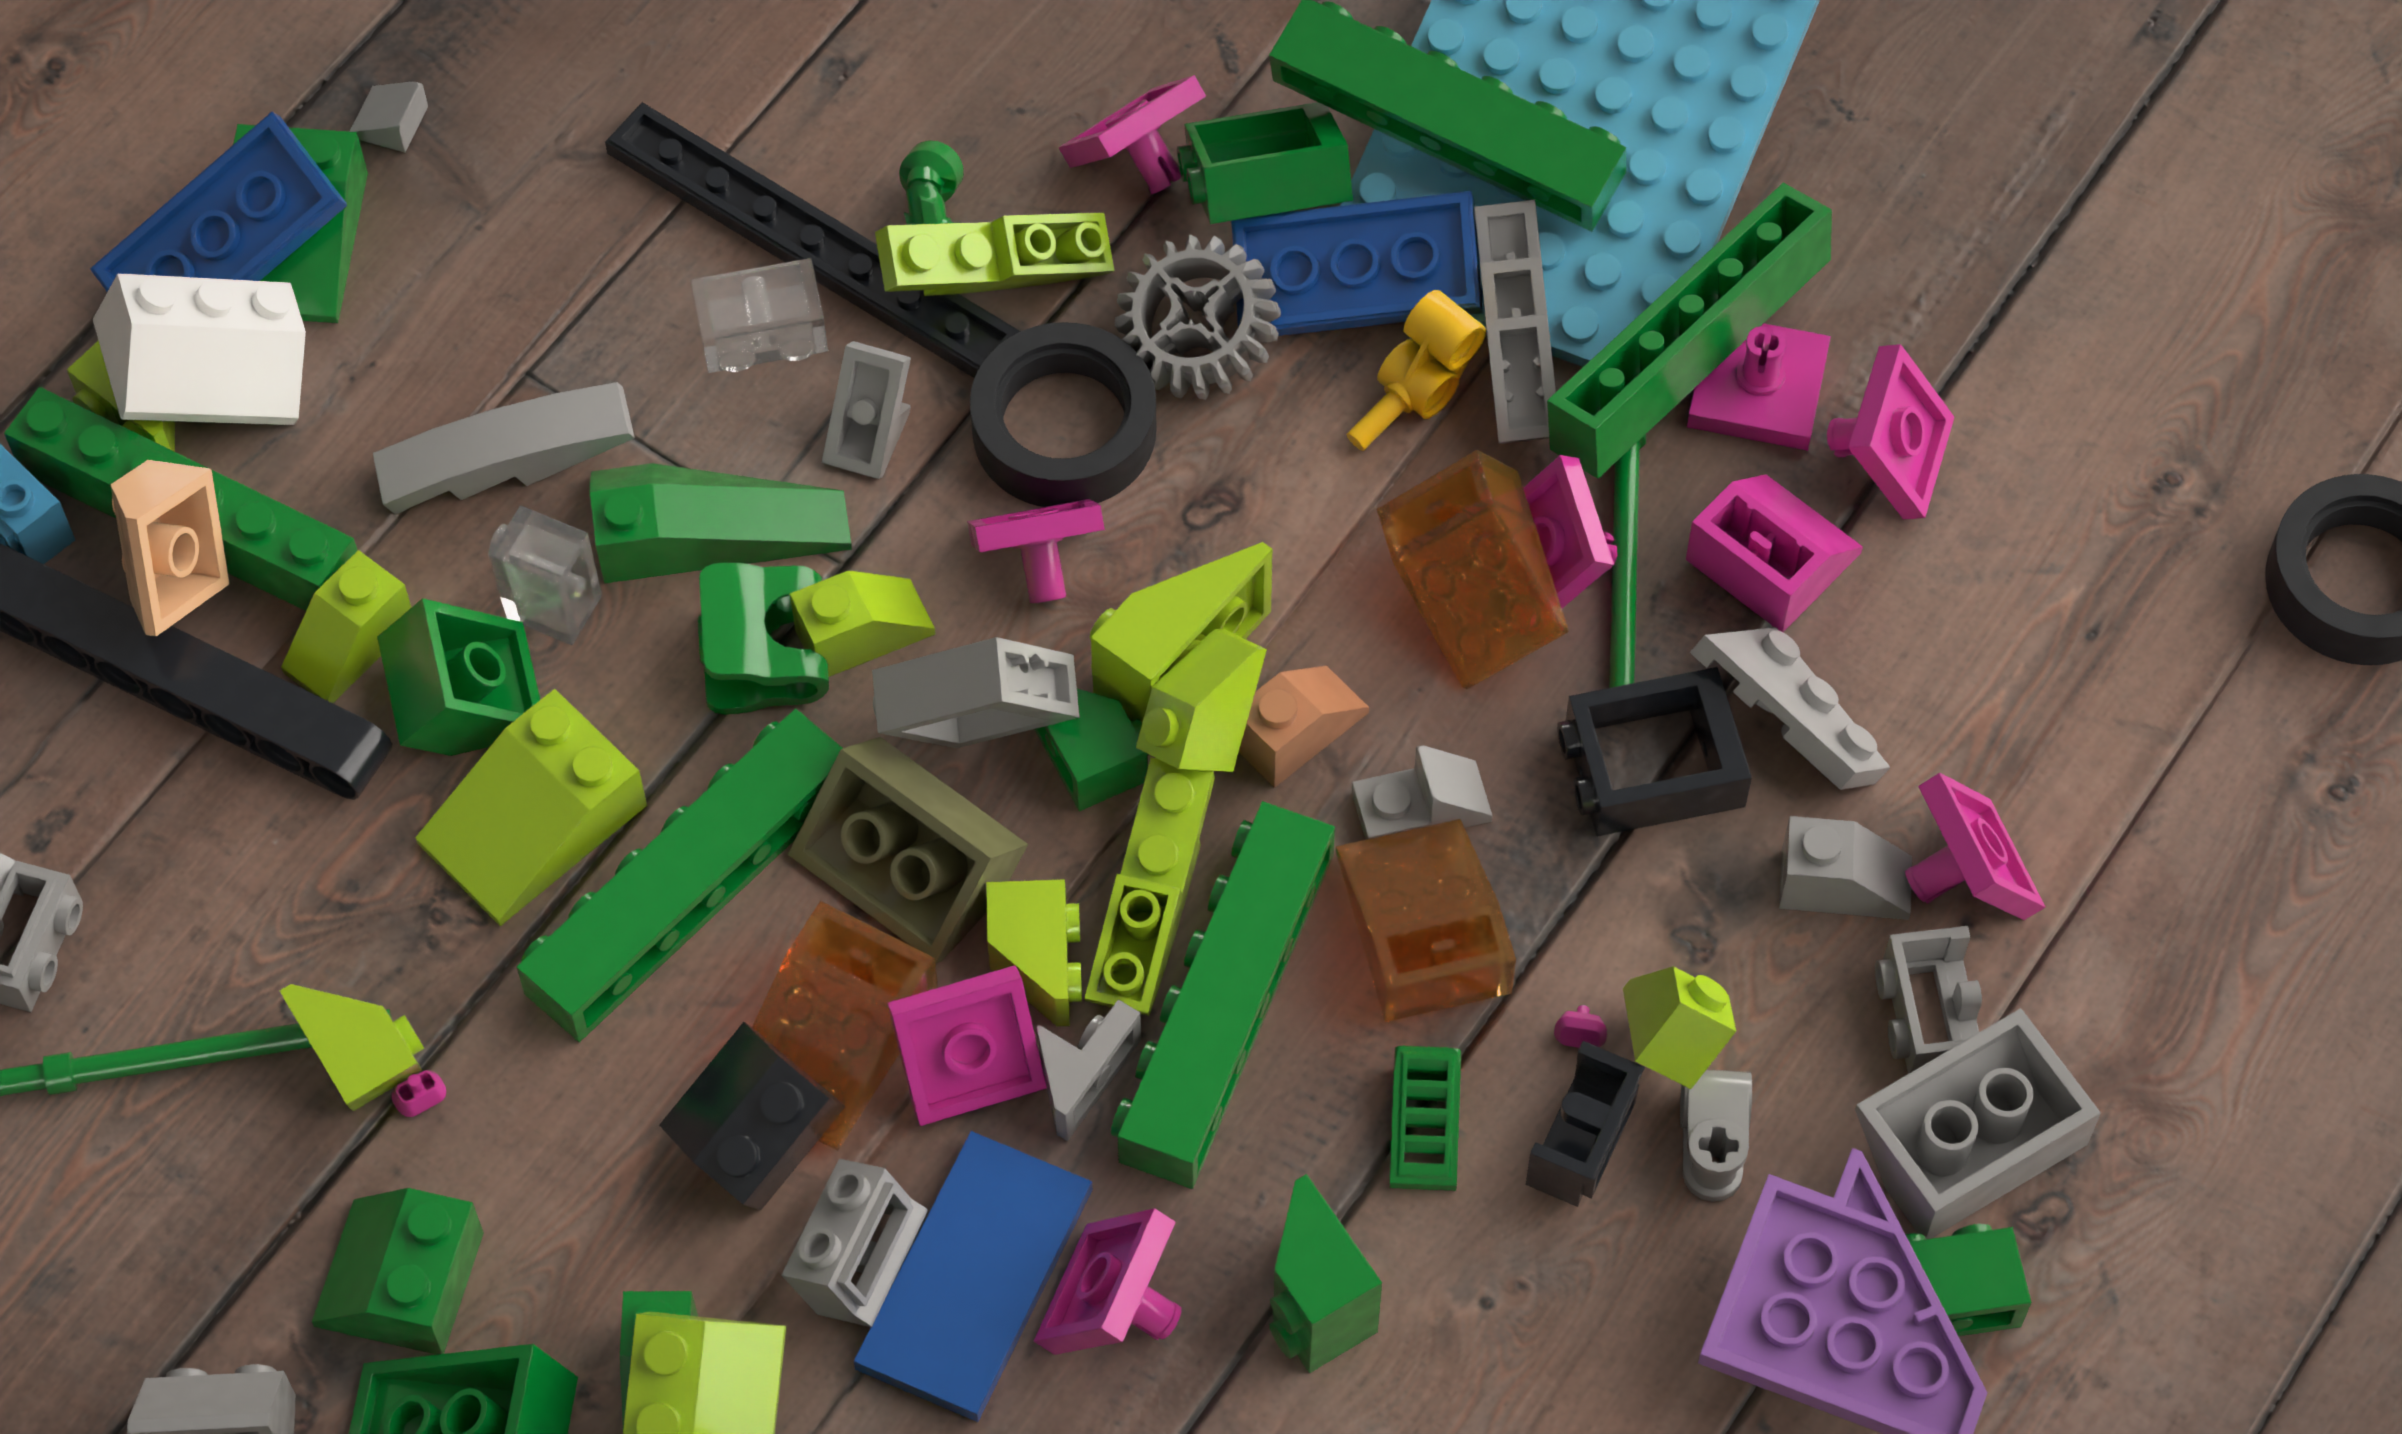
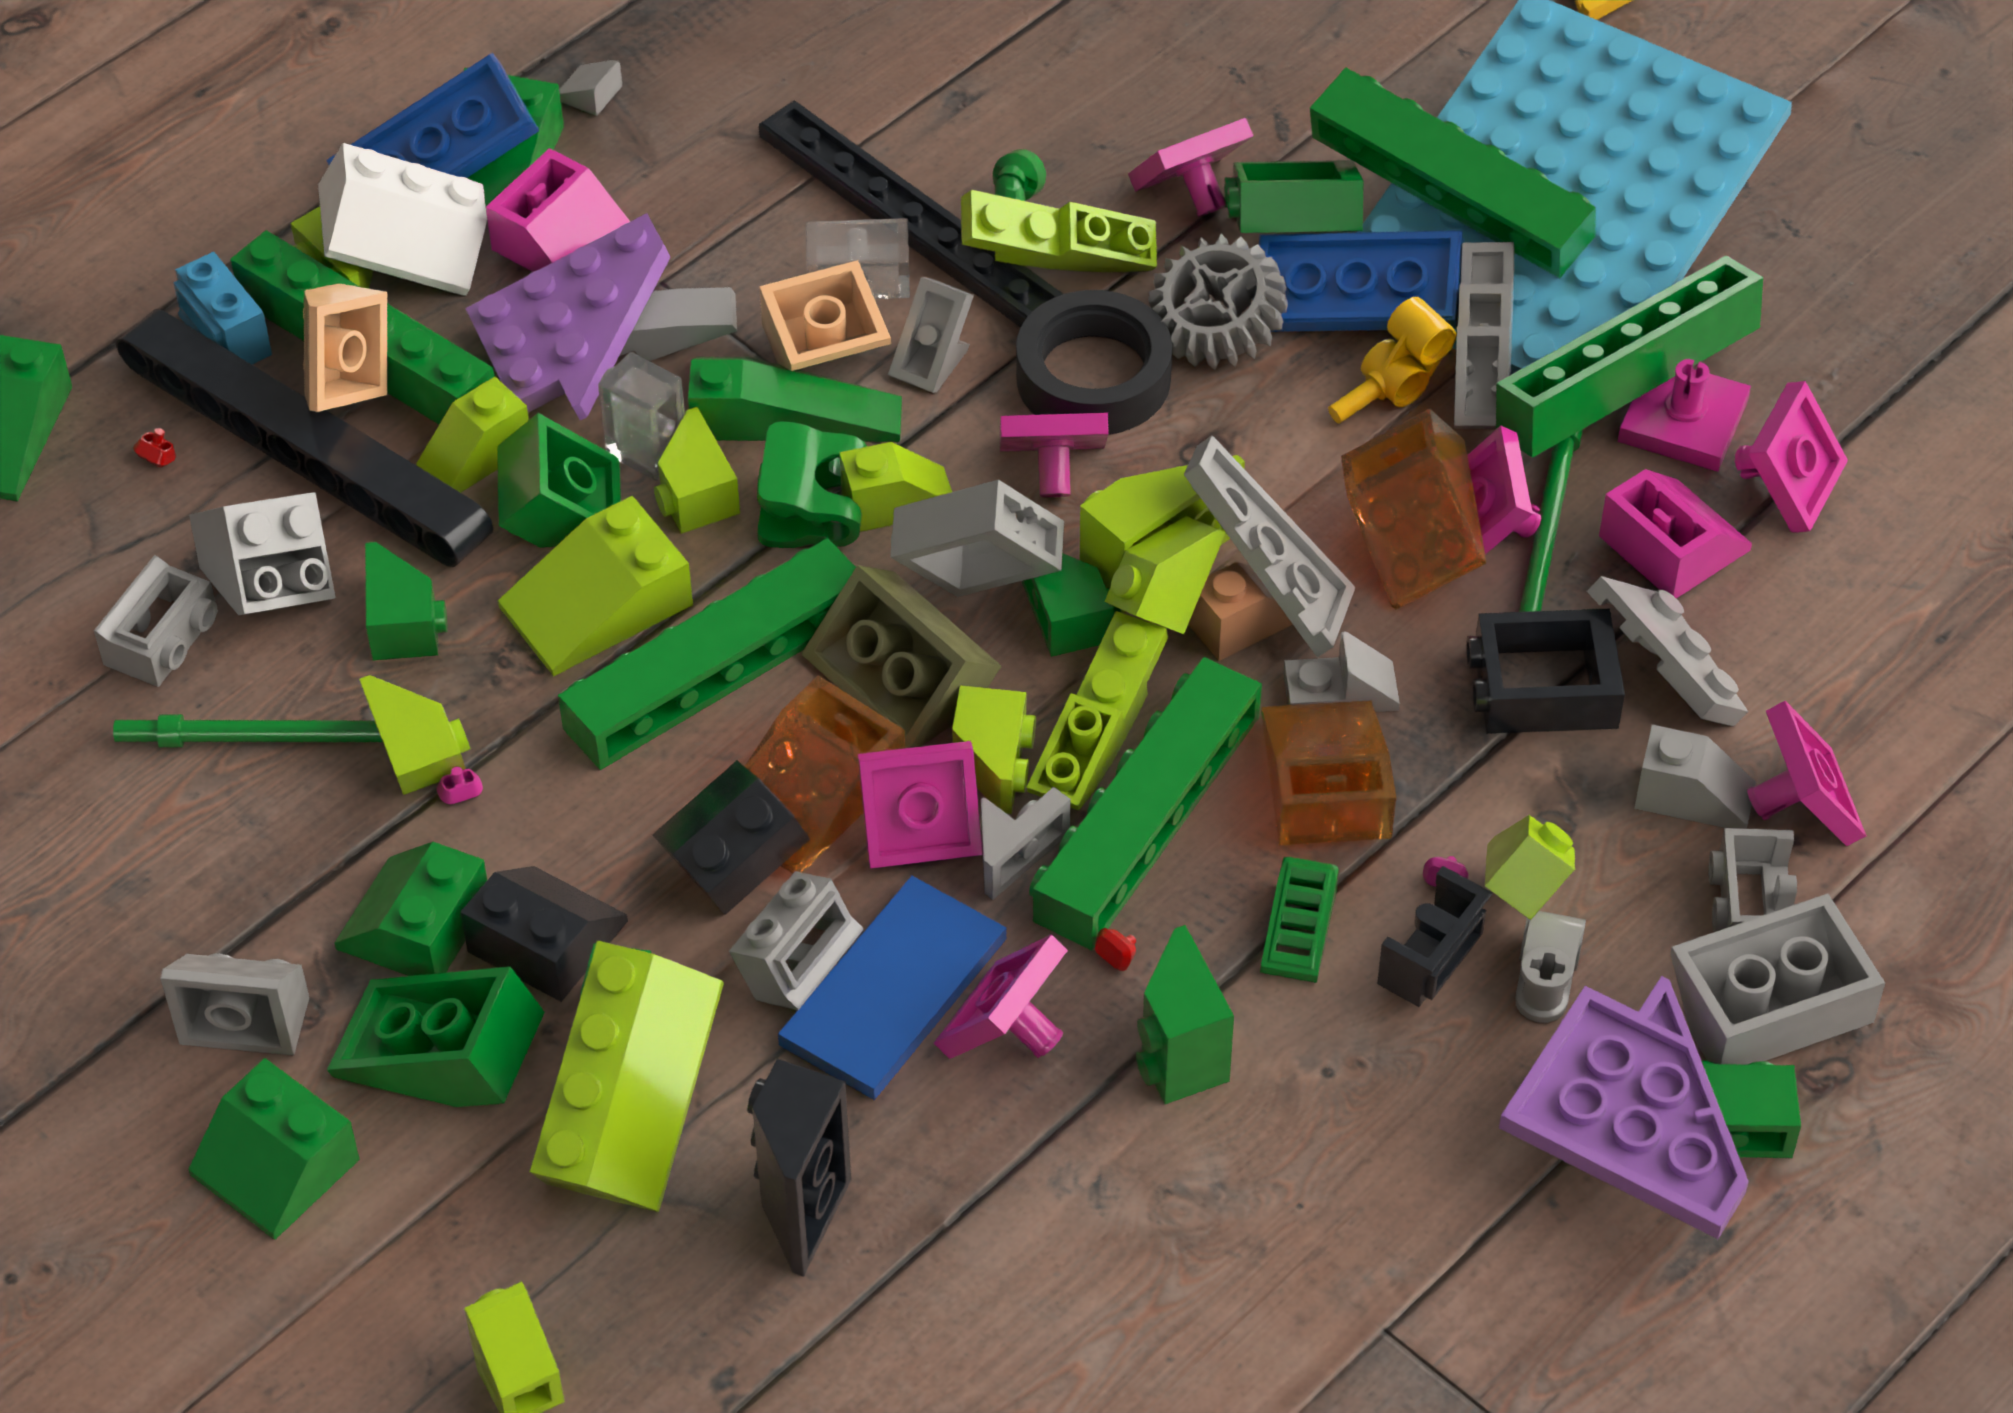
camera: 10 degrees right, 10 degrees down
(127, 827) = (265, 553): none -> light grey slope
(302, 869) = (400, 607): none -> green slope
(389, 316) = (550, 212): none -> dark pink slope
(432, 451) = (571, 317): none -> medium lavender wing
(552, 1266) = (538, 927): none -> black slope
(620, 640) = (695, 477): none -> lime slope
(735, 411) = (821, 316): none -> light nougat slope
(1221, 1185) = (1115, 948): none -> red rock
(1326, 652) = (1280, 553): none -> light grey wing

